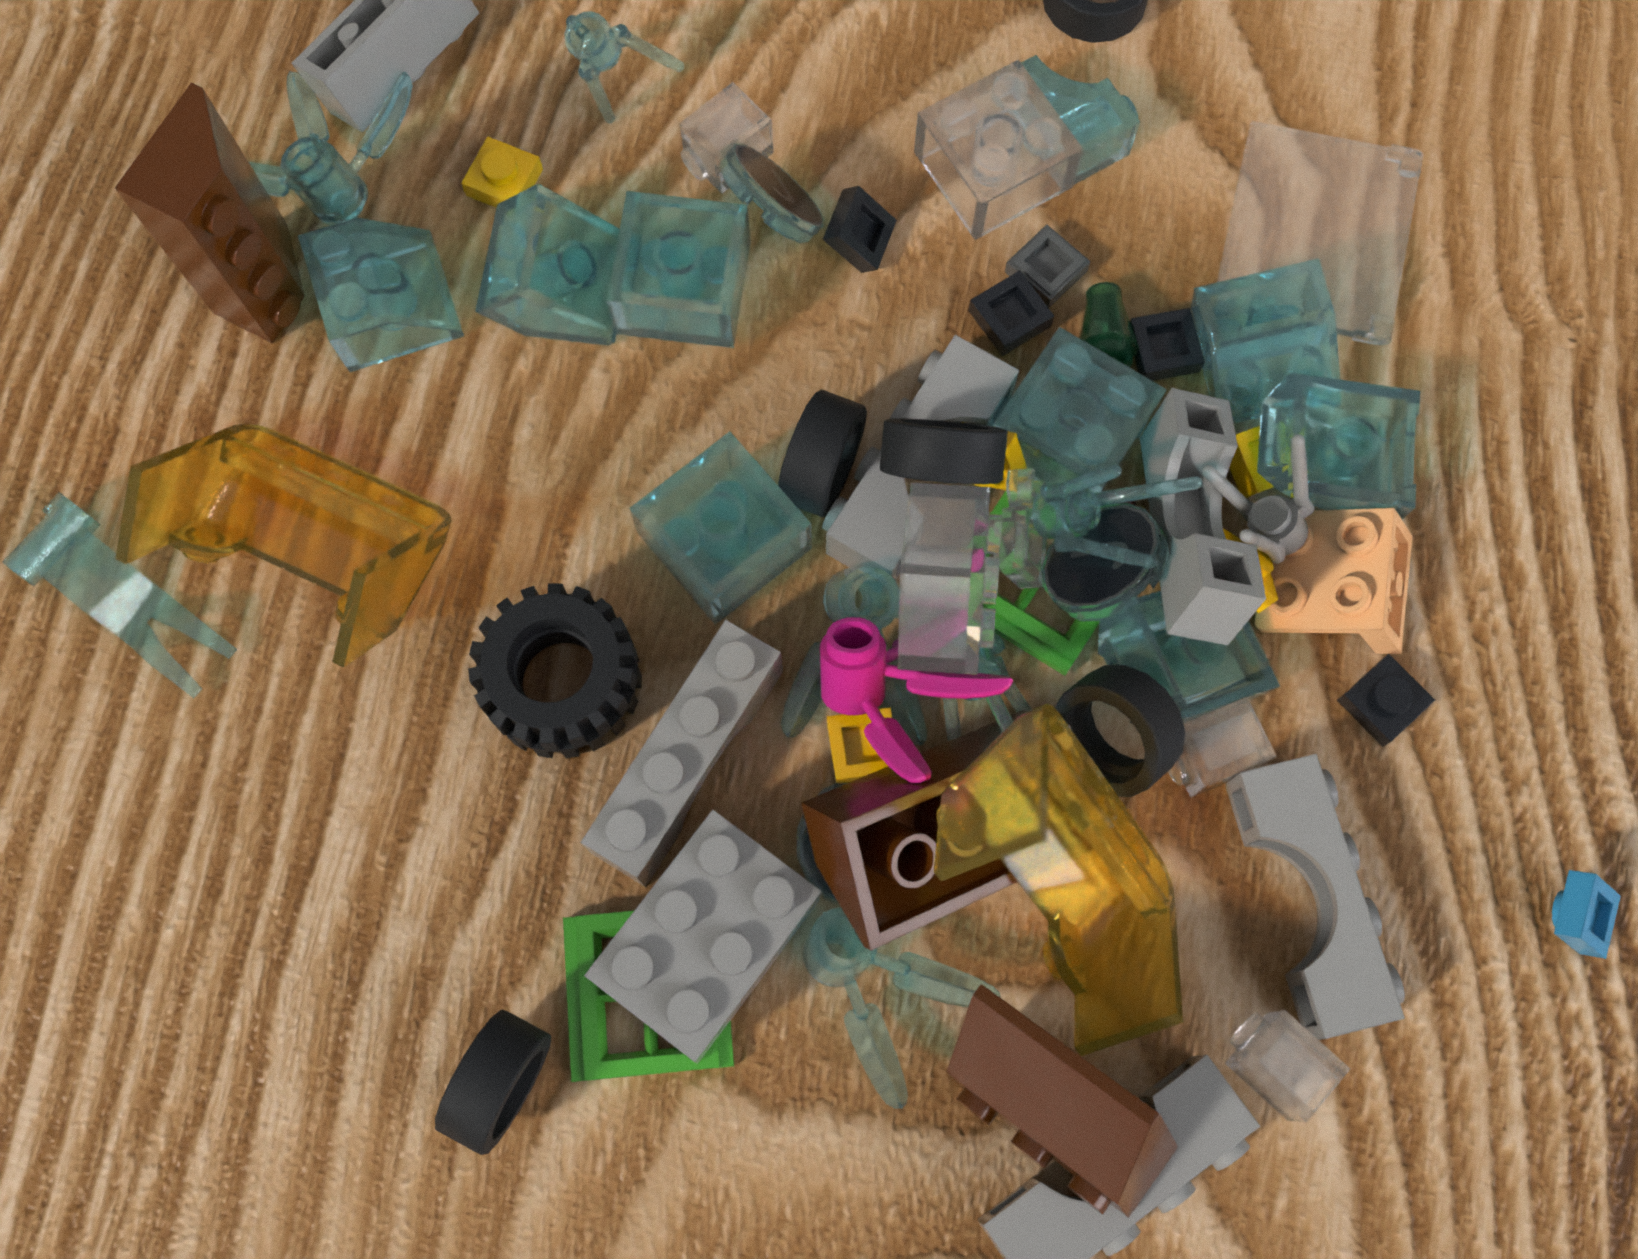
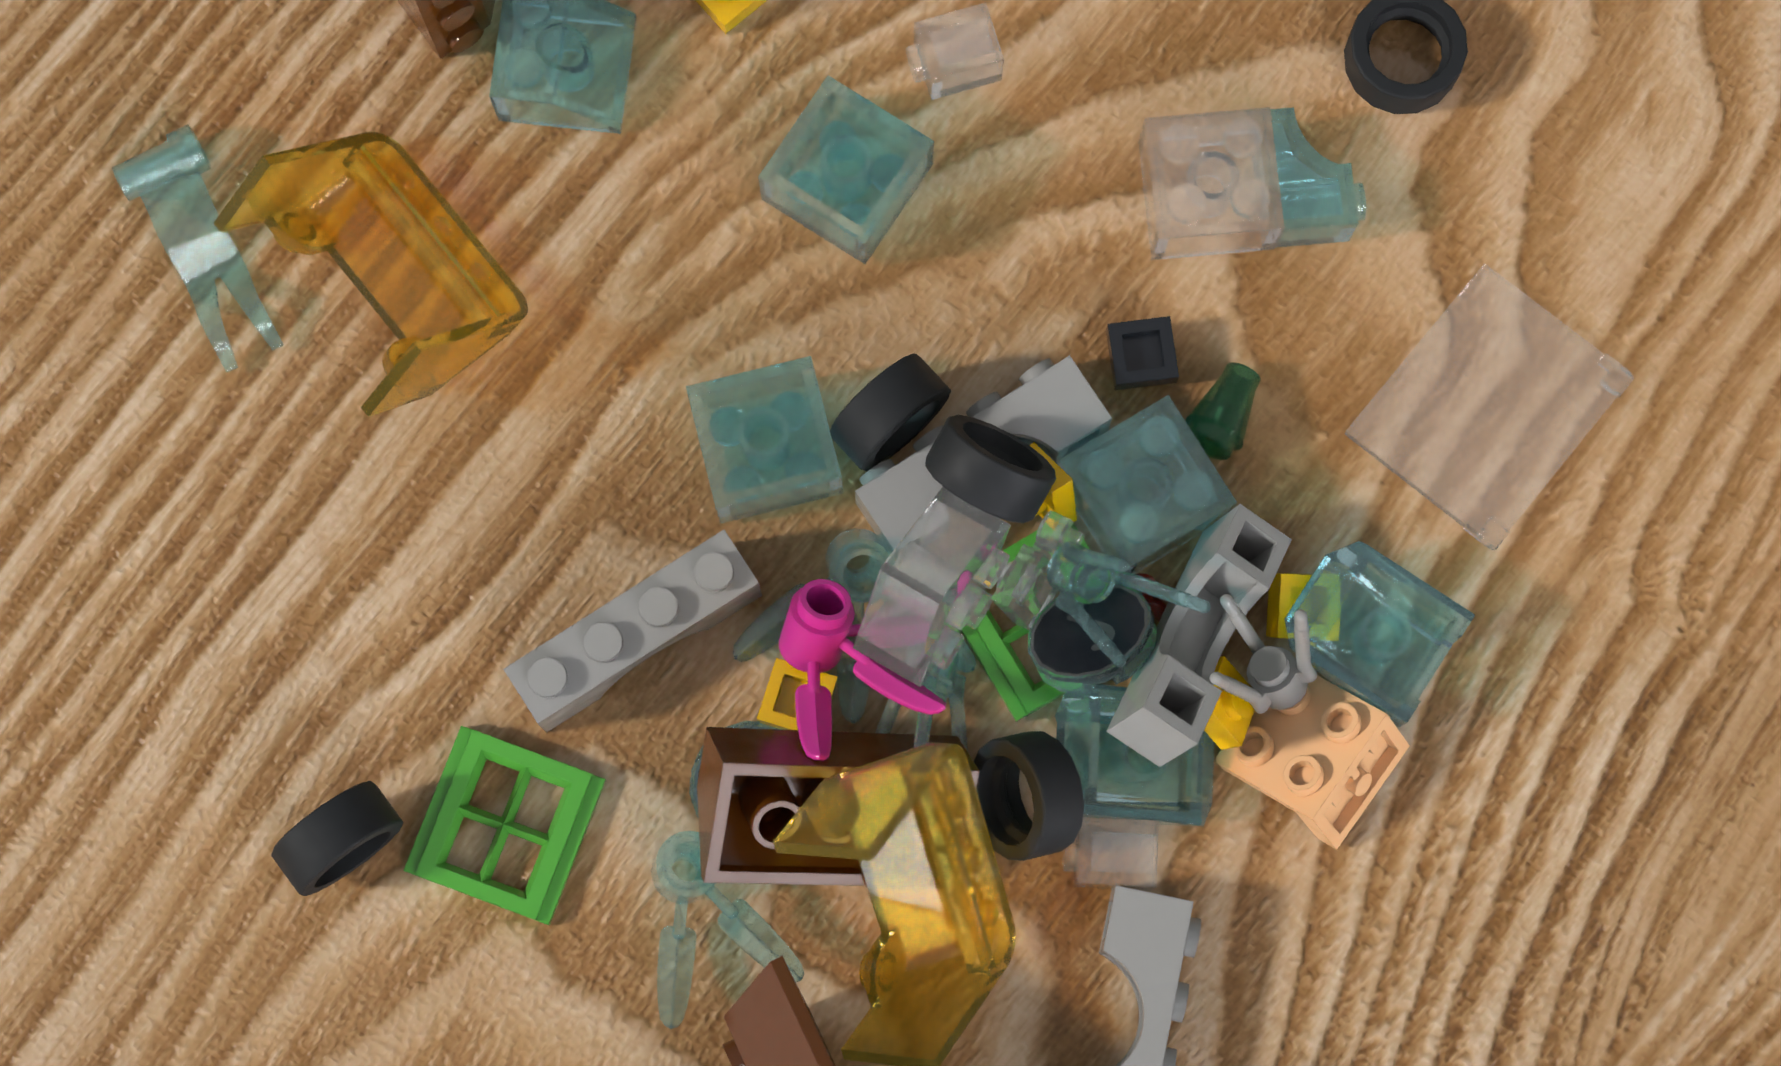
camera: 25 degrees right, 5 degrees up
(526, 631) = (525, 460): black tyre -> none
(549, 269) = (726, 109): clear light blue slope -> none
(704, 936) = (572, 802): light grey brick -> none
(784, 201) = (971, 132): tile -> none
(859, 229) = (1039, 203): black plate -> none
(1049, 264) = (1205, 320): dark grey tile -> none
(1167, 345) = (1273, 453): black plate -> none
(1263, 330) = (1363, 490): clear light blue slope -> none
(1386, 700) = (1298, 884): black plate -> none

